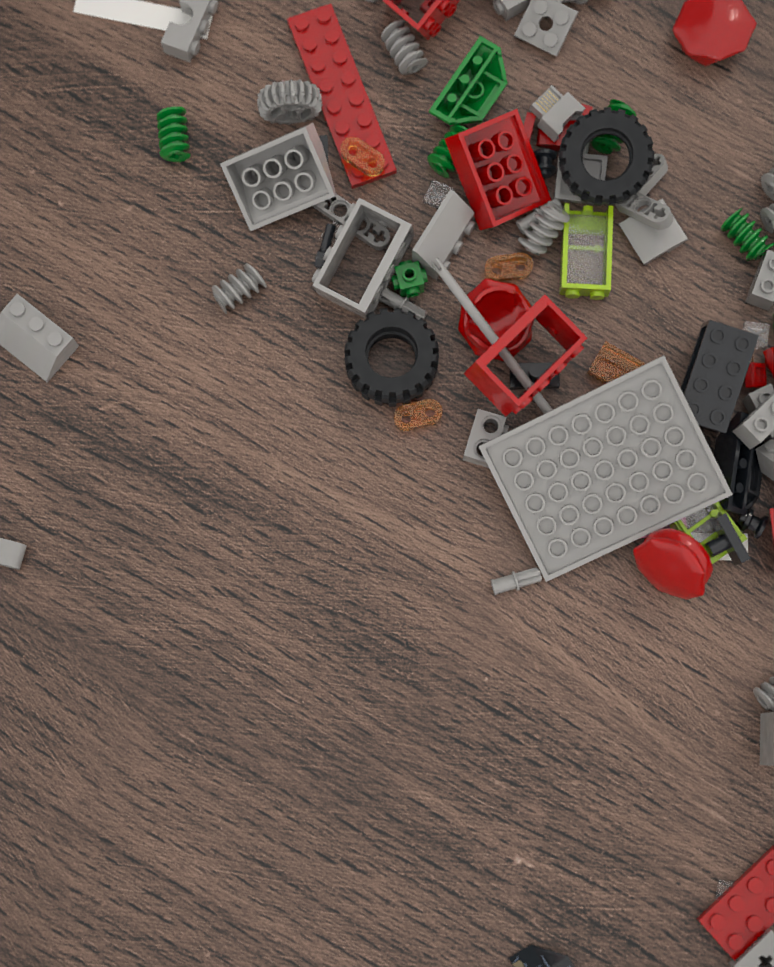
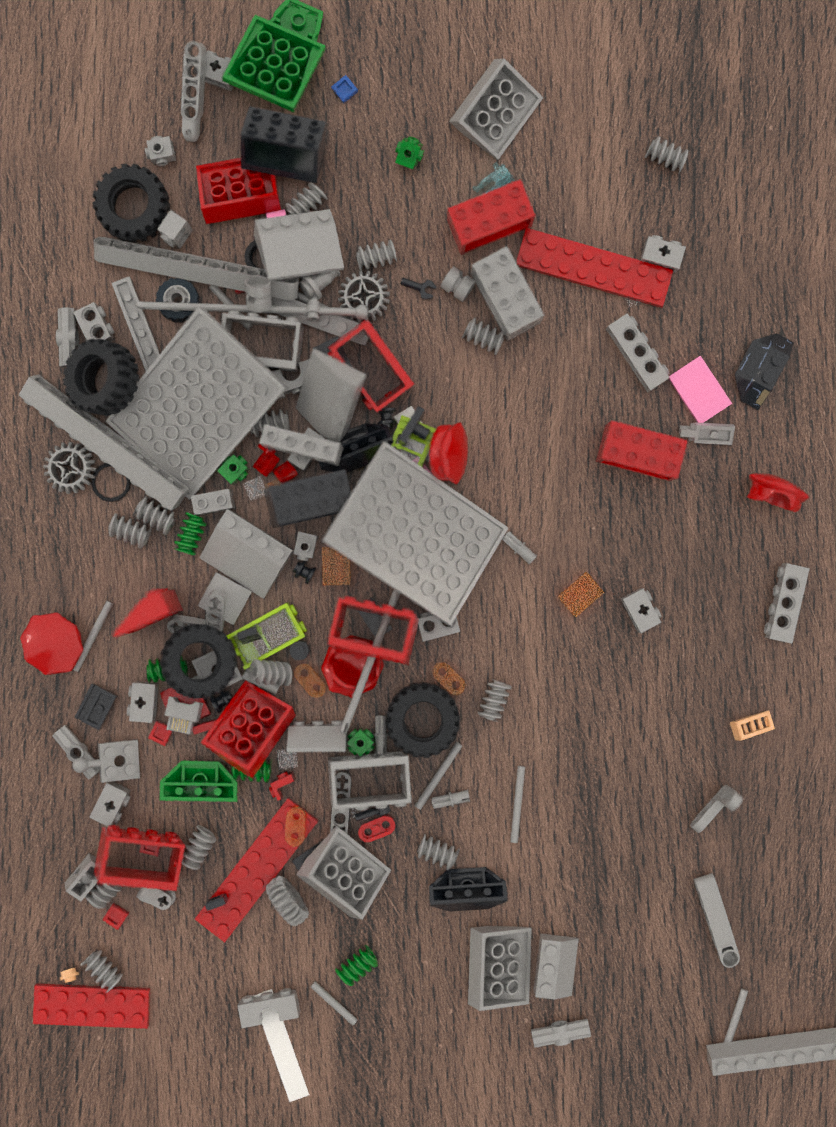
camera: 125 degrees left, 10 degrees up
(73, 279) = (499, 967): none -> light grey slope
(90, 631) = (724, 797): none -> light grey beam
(142, 716) = (740, 727): none -> light nougat slope
(150, 90) = (334, 1003): none -> light grey bar
(178, 293) = (468, 890): none -> black wedge
(231, 823) = (794, 595): none -> light grey brick
(233, 405) = (517, 804): none -> light grey bar
(285, 337) = (450, 799): none -> light grey axle
(304, 242) = (377, 828): none -> red plate
(319, 341) = (438, 775): none -> light grey bar
(335, 31) = (217, 901): none -> black tile
(348, 665) = (632, 605): none -> light grey brick
(363, 448) = (494, 700): none -> light grey piece
(402, 917) = (776, 491): none -> red piece
(416, 163) = (282, 779): none -> red bracket
(421, 616) = (580, 594): none -> clear orange plate
(516, 880) = (708, 433): none -> light grey hinge
(545, 80) = (160, 734): none -> red tile
(546, 784) = (641, 451): none -> red hose
(548, 275) = (299, 650): none -> black wheel
(572, 902) = (699, 390): none -> bright pink tile
(582, 80) = (146, 712): none -> light grey brick
(598, 230) = (248, 635): none -> black tile
(617, 35) = (96, 706): none -> black plate
(635, 329) = (304, 571): none -> black wheel
(651, 351) = (309, 539): none -> light grey brick
(690, 283) = (246, 553): none -> light grey slope
(691, 138) = (152, 609): none -> red slope
(695, 75) = (93, 634): none -> light grey bar
(701, 848) = (637, 364): none -> light grey brick

